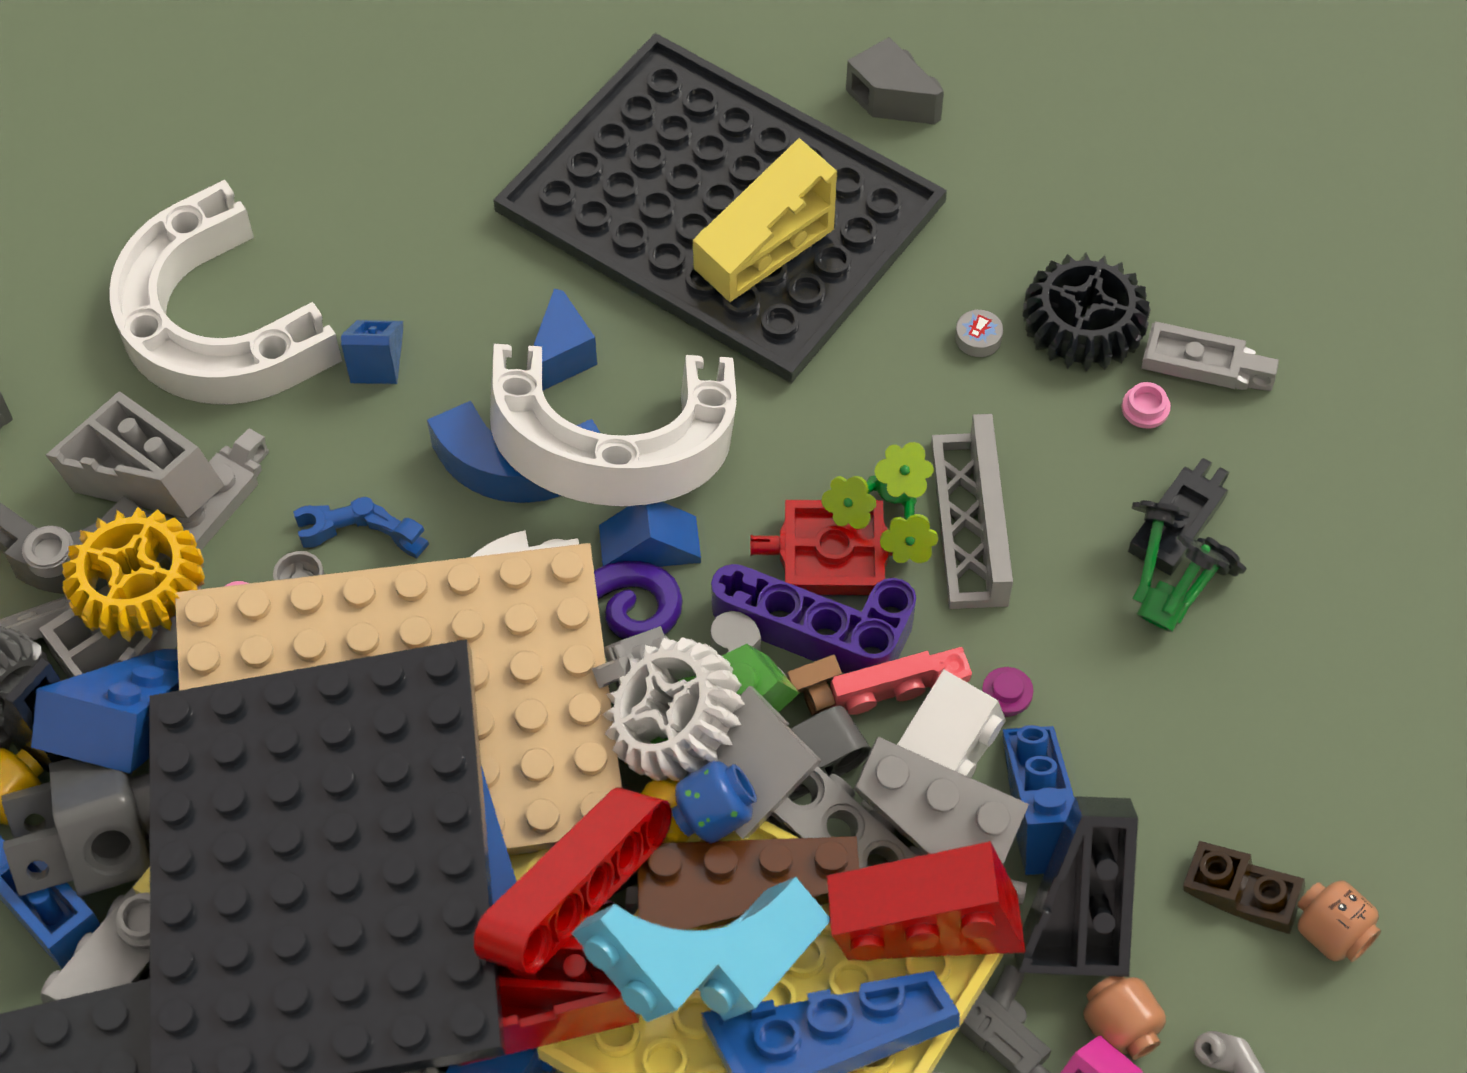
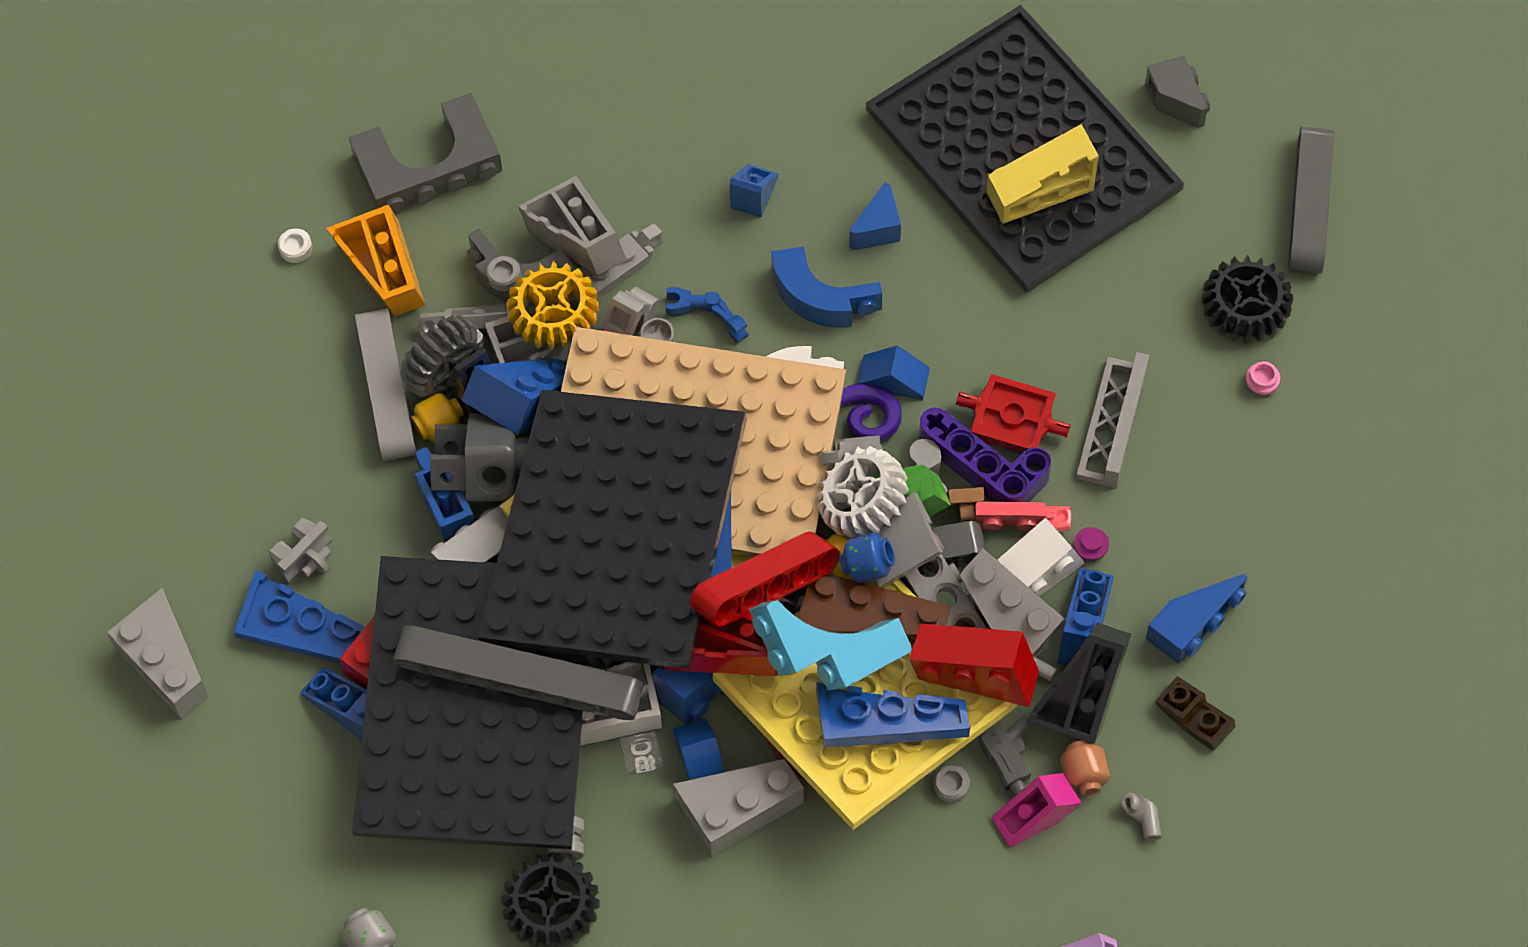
camera: 20 degrees right, 5 degrees up
(134, 920) = (496, 525): light grey plate -> none
(195, 365) = (625, 165): white piece -> none
(249, 553) = (630, 310): none -> light grey leg
(604, 466) = (882, 322): white piece -> none
(897, 480) = (1067, 382): lime plant -> none
(979, 333) = (1168, 293): light grey tile -> none
(1116, 170) = (1311, 199): none -> dark grey beam
(1168, 604) = (1218, 517): plant -> none
(1182, 752) = (1188, 618): none -> blue slope
(1191, 493) = (1254, 461): black hinge -> none
(1207, 358) = (1318, 356): light grey hinge -> none
(1338, 920) = (1243, 751): nougat head -> none

